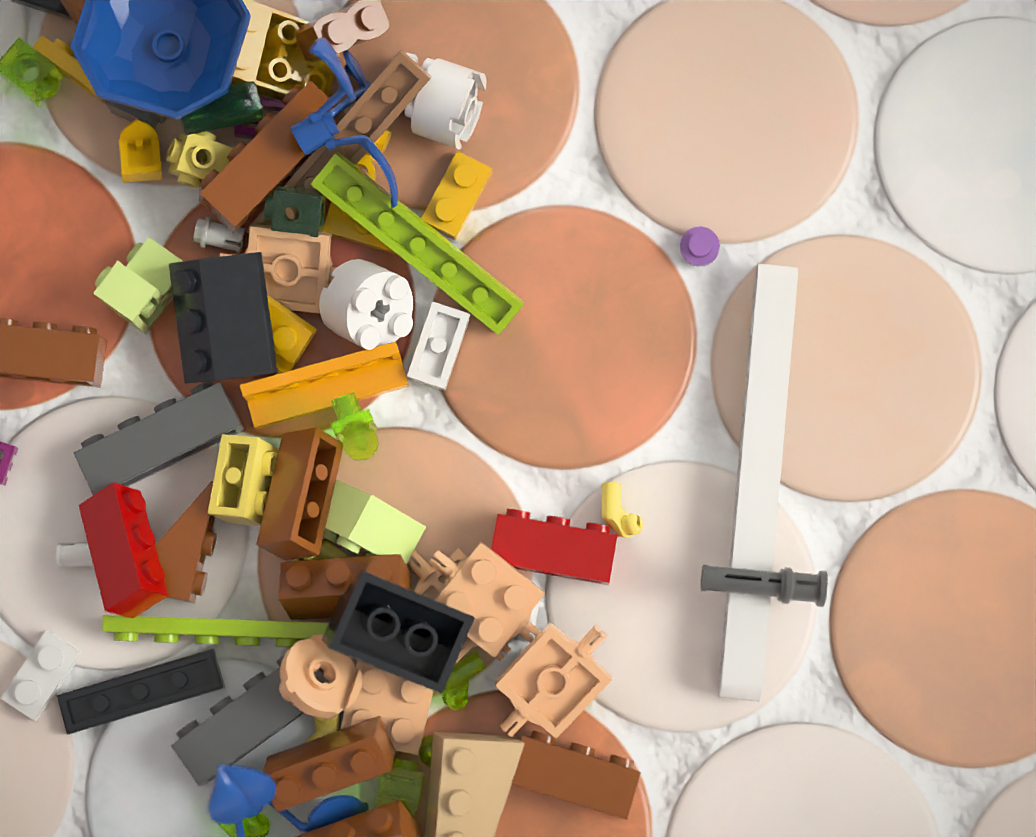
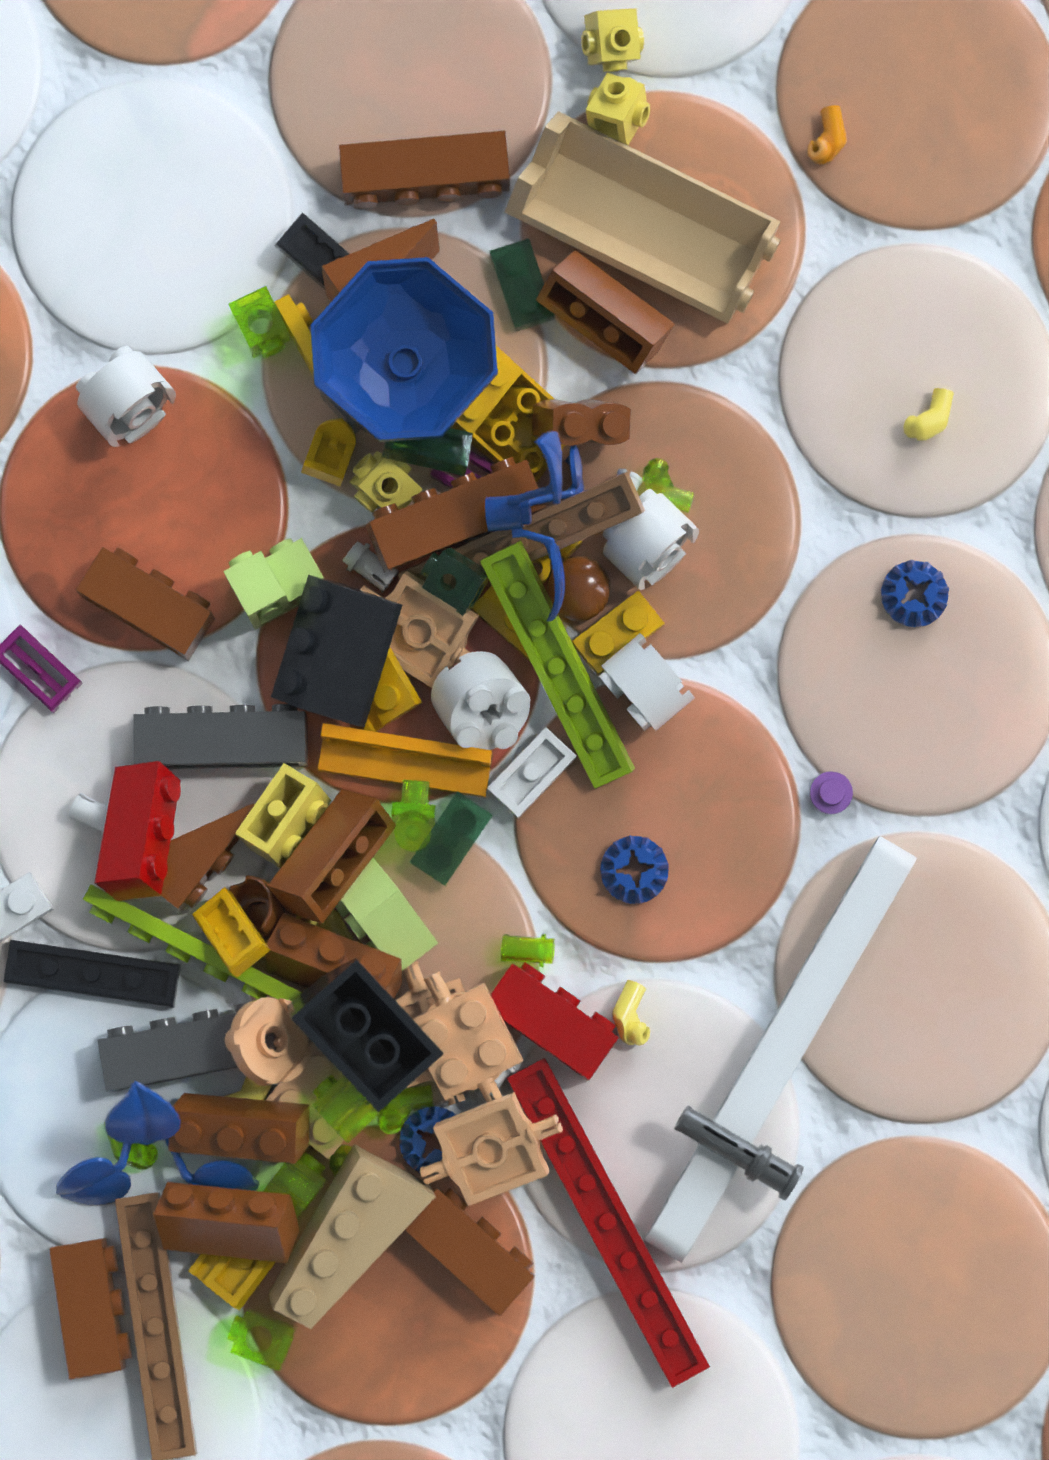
camera: 20 degrees right, 0 degrees up
(243, 599) = (231, 932): none -> yellow plate
(253, 573) = (258, 904): none -> dark orange hair
(396, 433) = (452, 839): none -> clear green plate
(409, 703) = (343, 1106): none -> clear neon green brick
(412, 170) = (585, 588): none -> dark orange hair
(428, 47) = (658, 479): none -> clear neon green arm
(483, 708) = (411, 1142): none -> blue gear
(501, 224) = (646, 683): none -> white brick
(505, 497) = (528, 949): none -> clear neon green pin
(559, 405) = (621, 884): none -> blue gear
(685, 699) = (610, 1226): none -> red plate
(698, 63) = (913, 612): none -> blue gear

